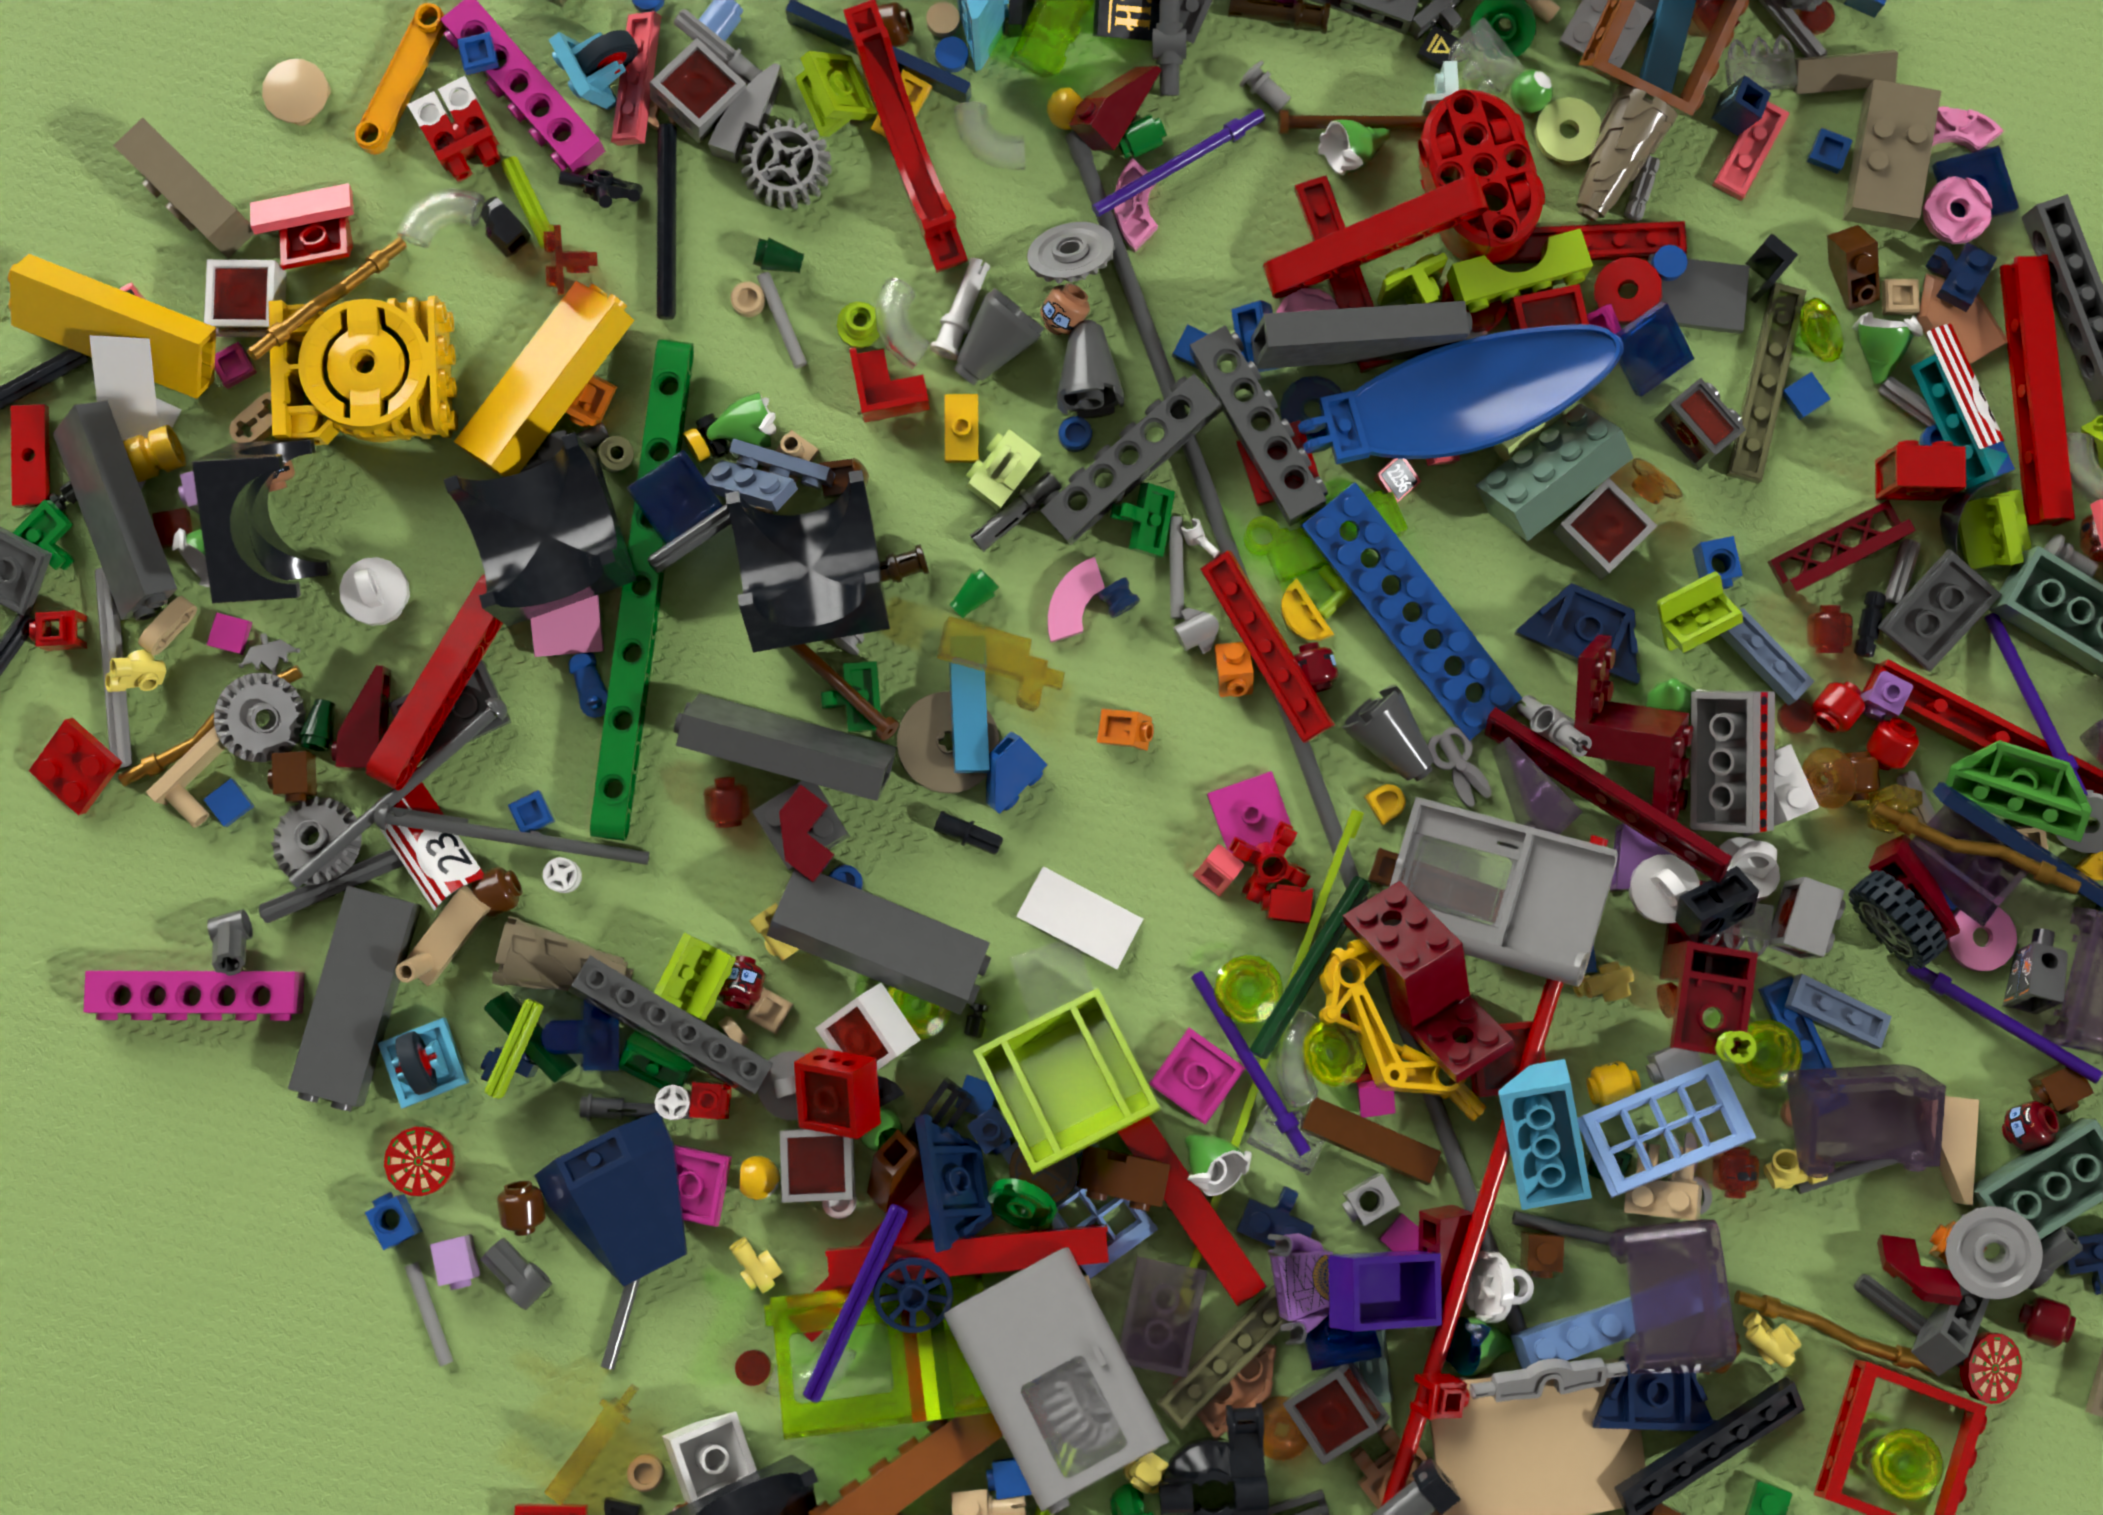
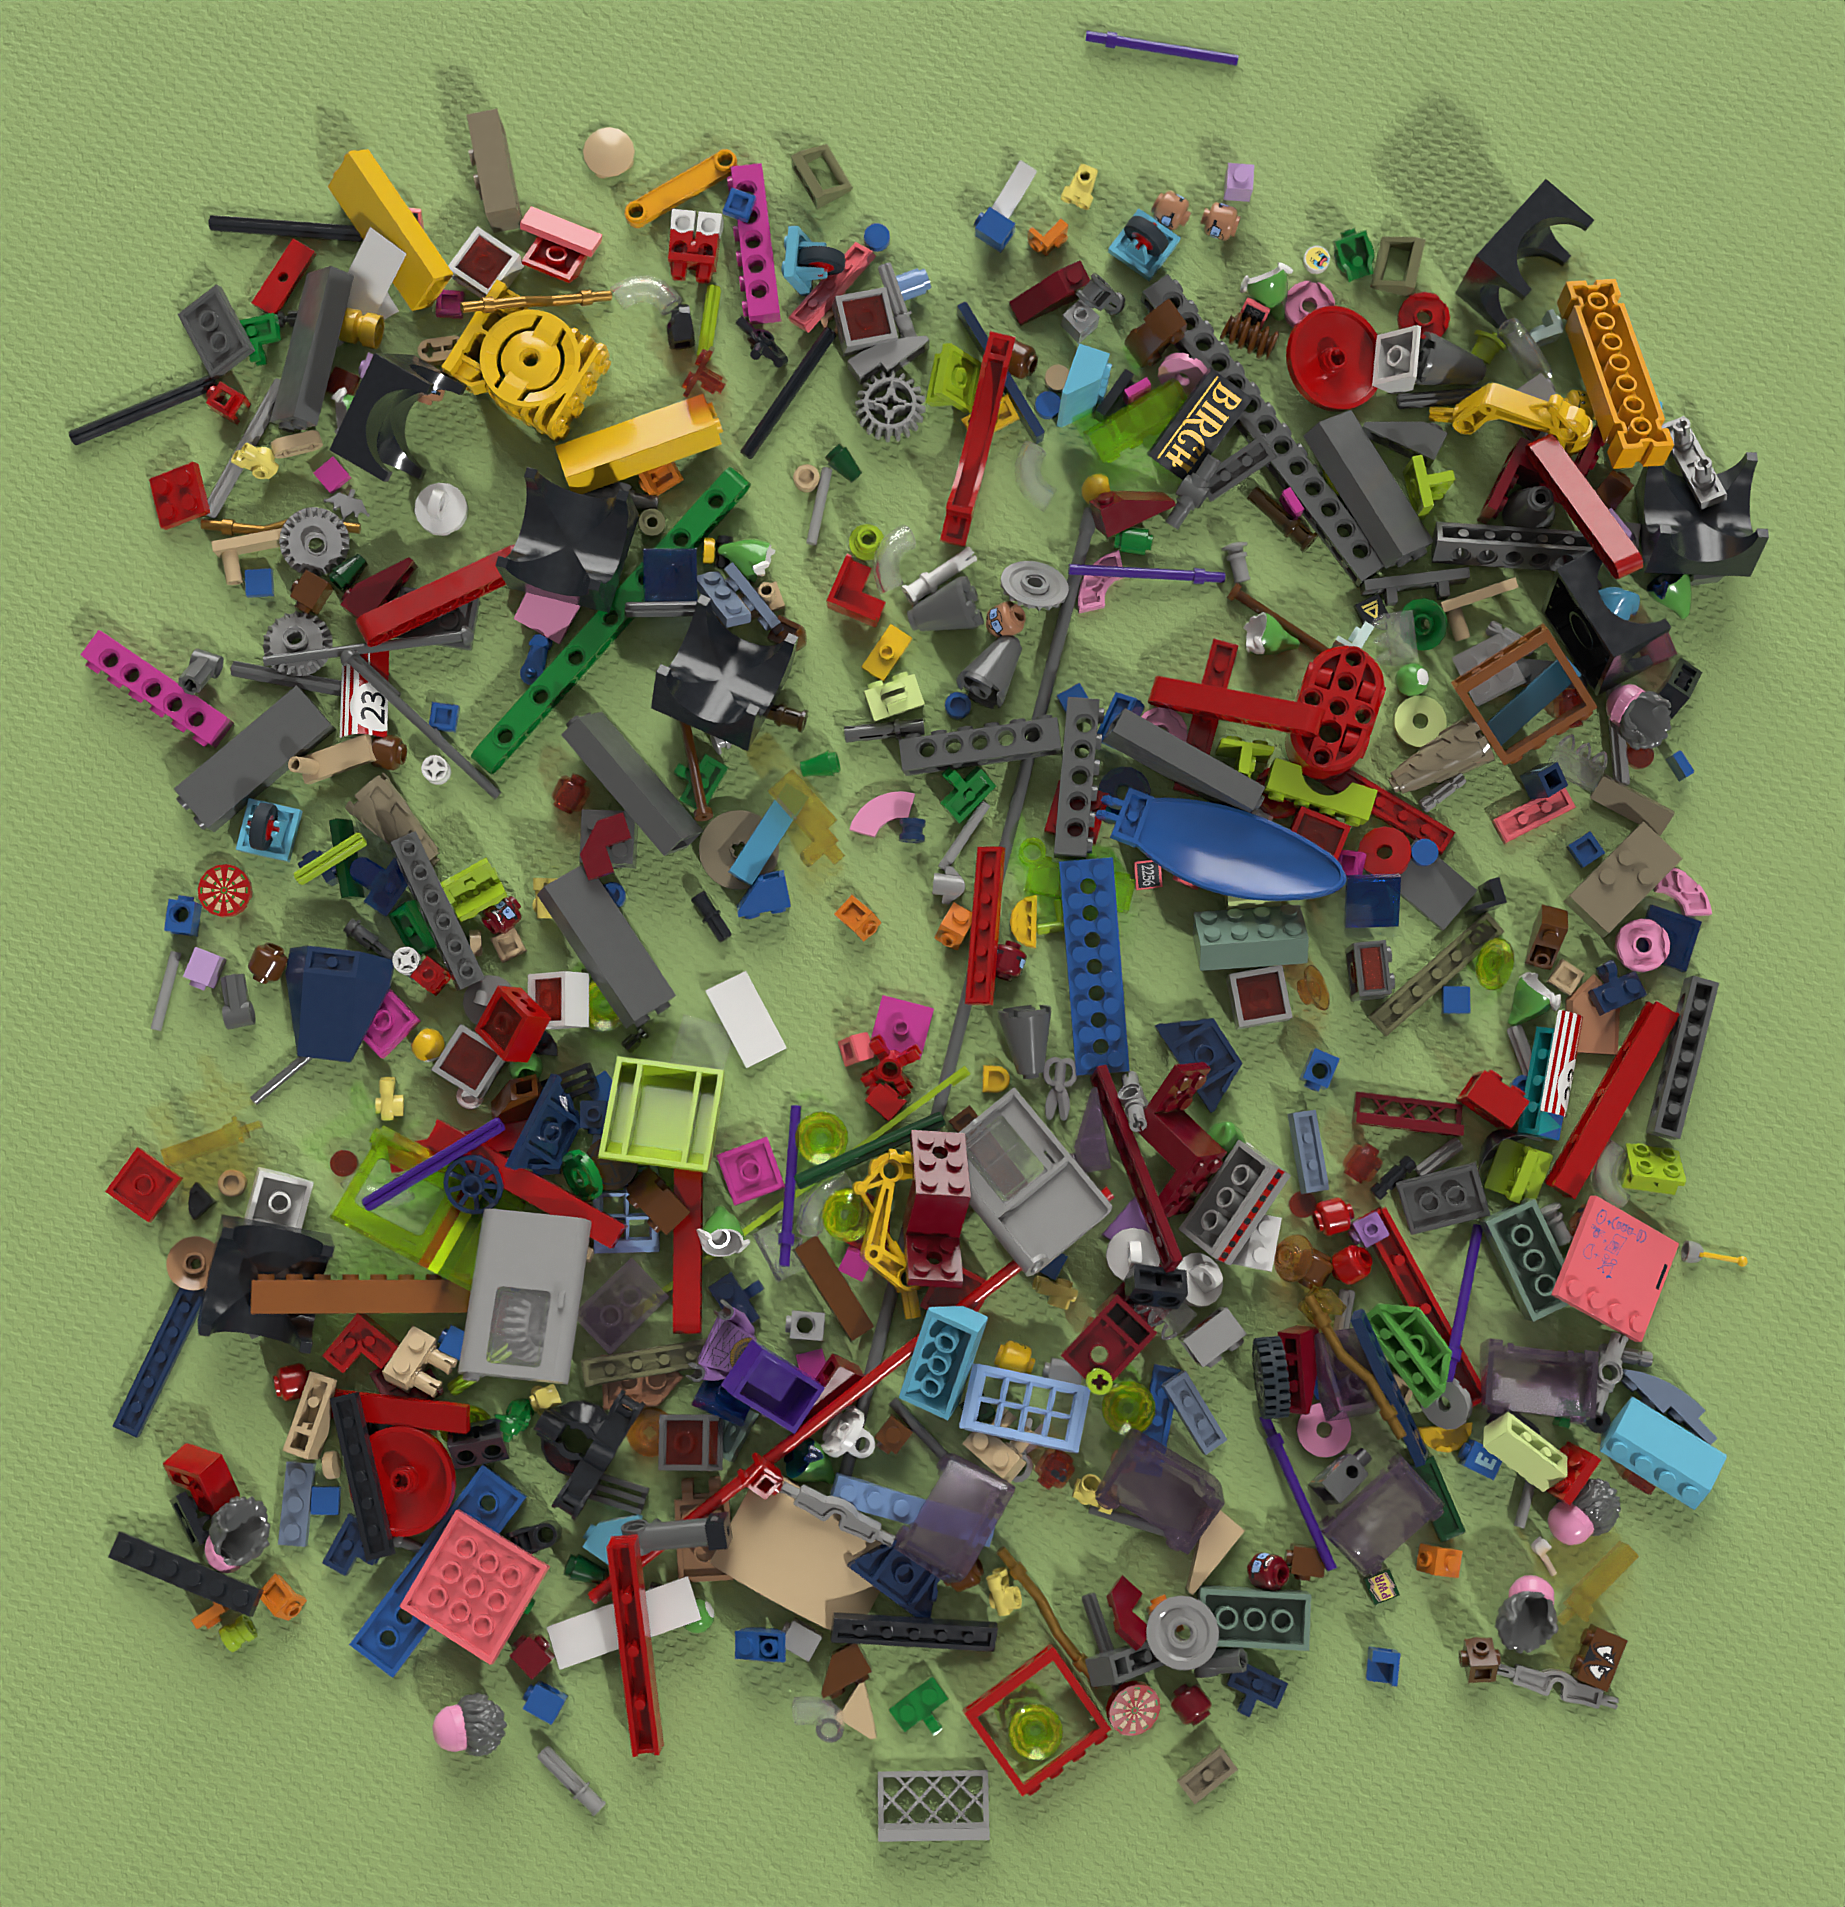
camera: 35 degrees right, 0 degrees up
(1197, 537) = (991, 825): white hand -> none
(1697, 613) = (1279, 1092): lime bracket -> none

